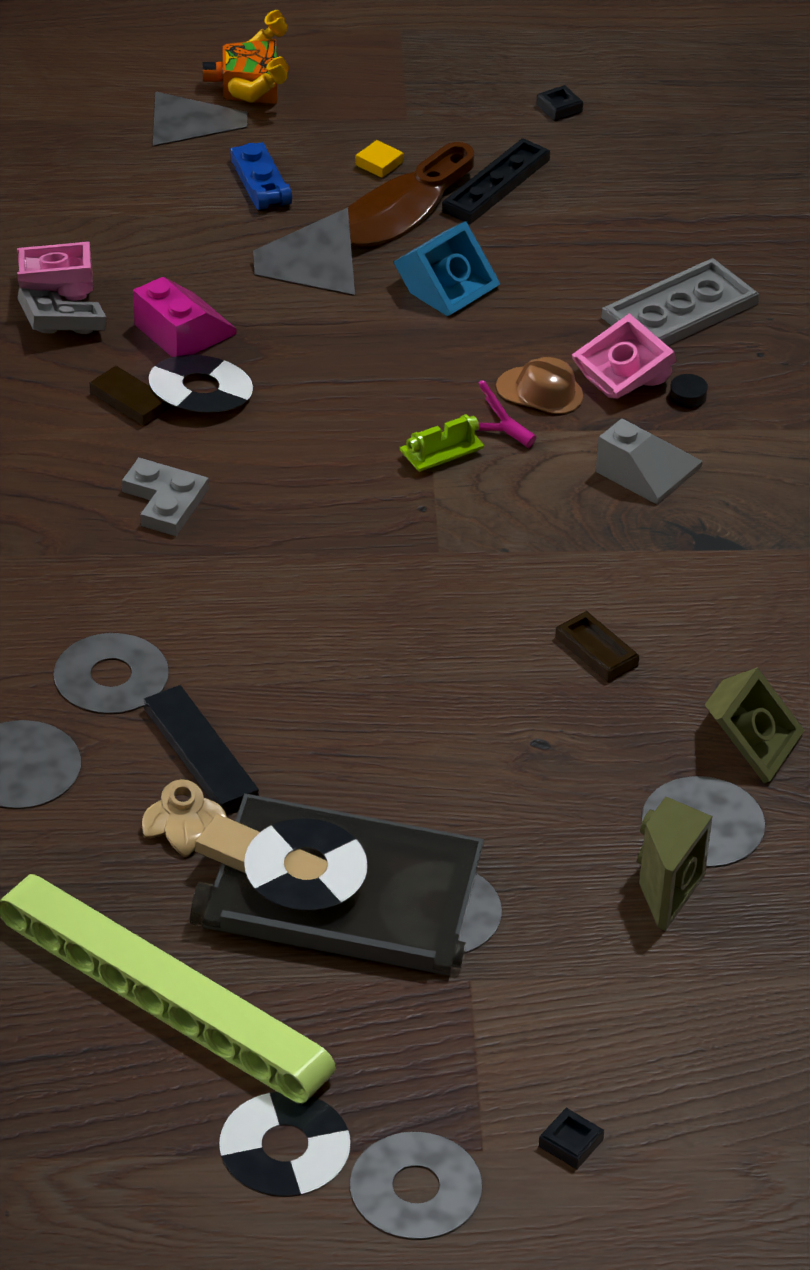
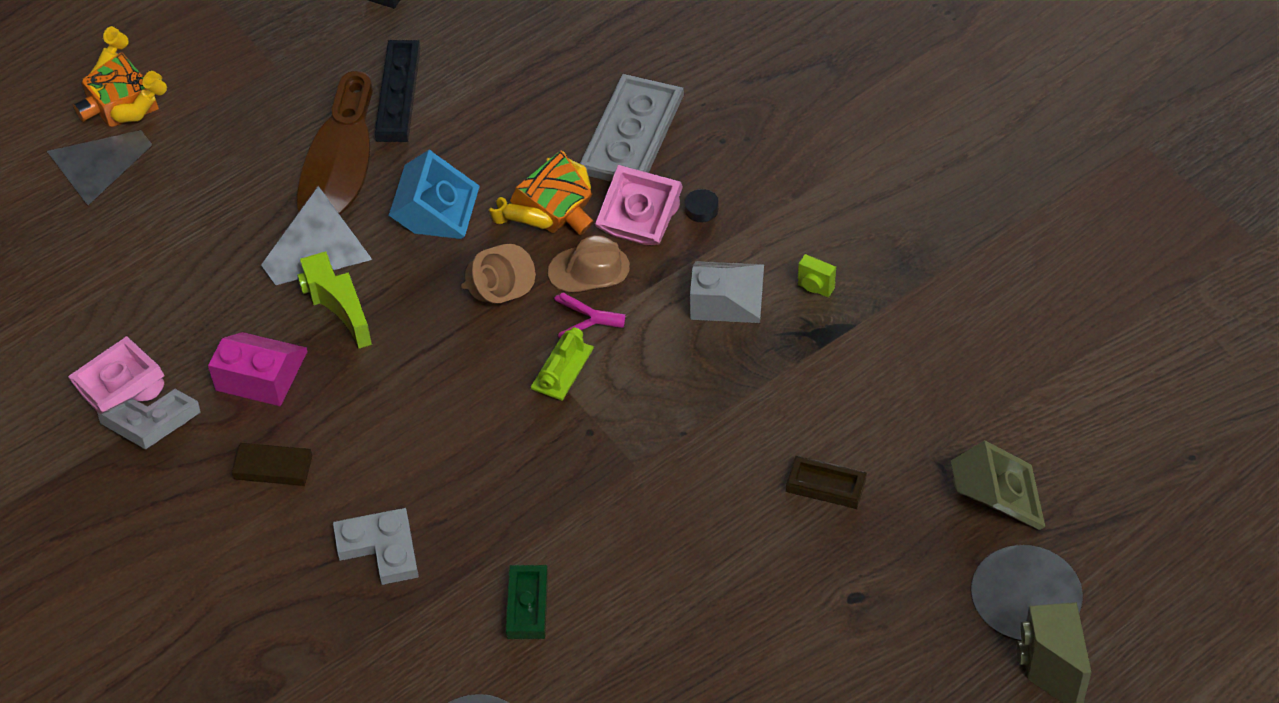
camera: 30 degrees left, 10 degrees up
(233, 389) = (294, 434): sticker -> none
(245, 593) = (527, 602): none -> dark green plate
(260, 175) = (206, 188): blue plate -> none
(296, 297) = (334, 293): none -> lime slope
(379, 158) = (289, 119): yellow tile -> none
(450, 349) = (500, 274): none -> medium nougat piece
(550, 313) = (549, 197): none -> torso
(739, 488) = (816, 276): none -> lime plate

